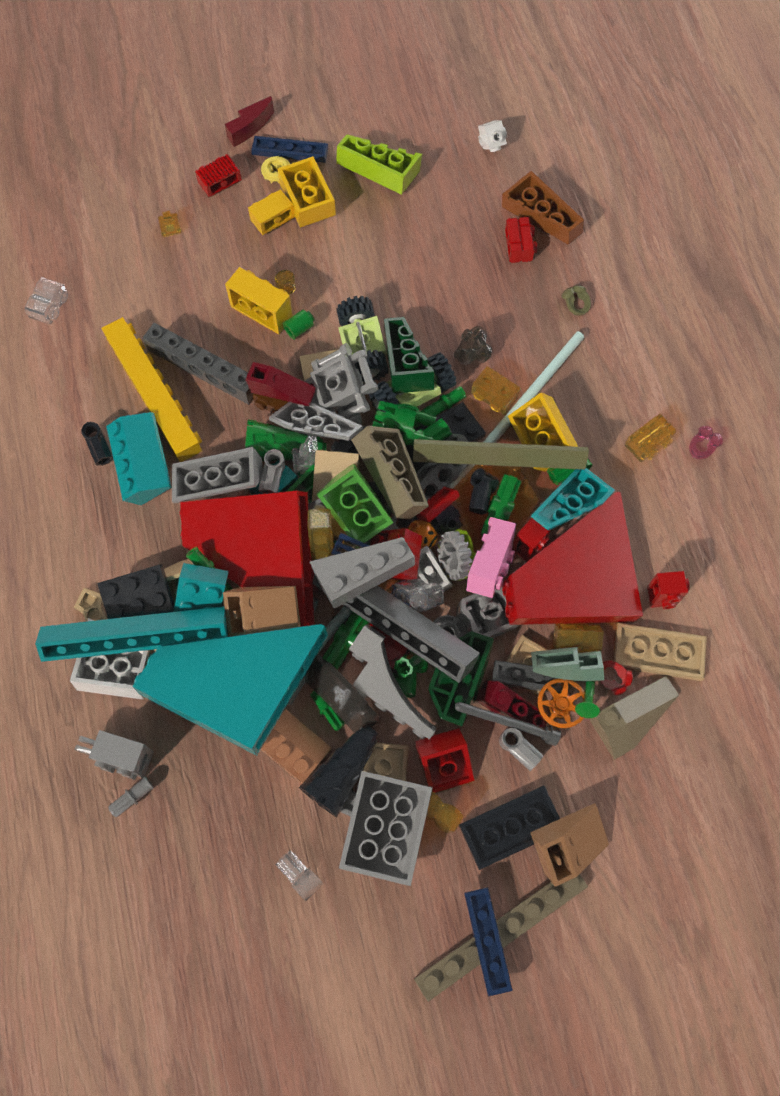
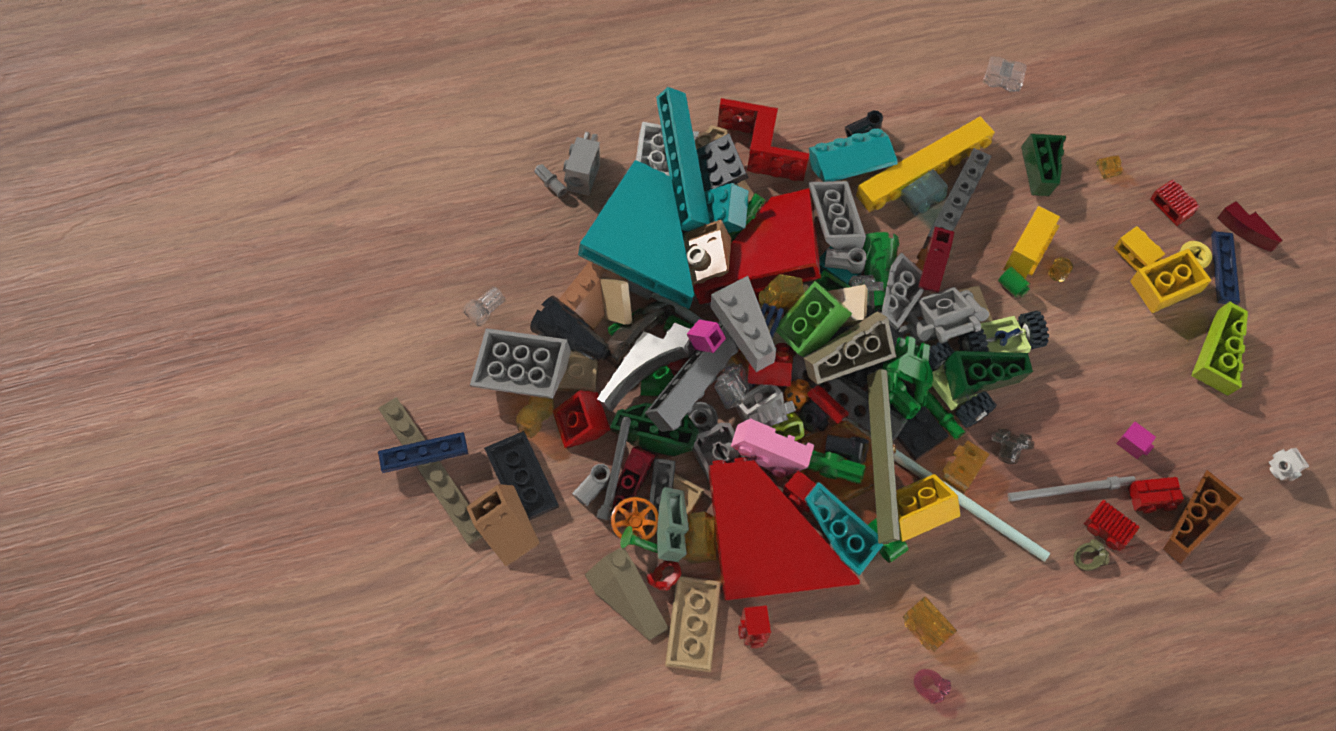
camera: 85 degrees right, 5 degrees down
(105, 549) = (762, 156): none -> red bracket
(164, 279) = (1043, 162): none -> dark green wedge
(188, 392) = (924, 192): none -> clear light blue brick
(270, 619) = (697, 256): none -> tile
(310, 715) = (616, 300): none -> tan tile
(364, 334) = (1005, 335): none -> dark blue hand
(375, 612) = (706, 336): none -> dark pink brick
(467, 246) = (1136, 441): none -> dark pink brick
(508, 274) = (1111, 483): none -> light grey bar
(551, 279) = (1111, 526): none -> red brick

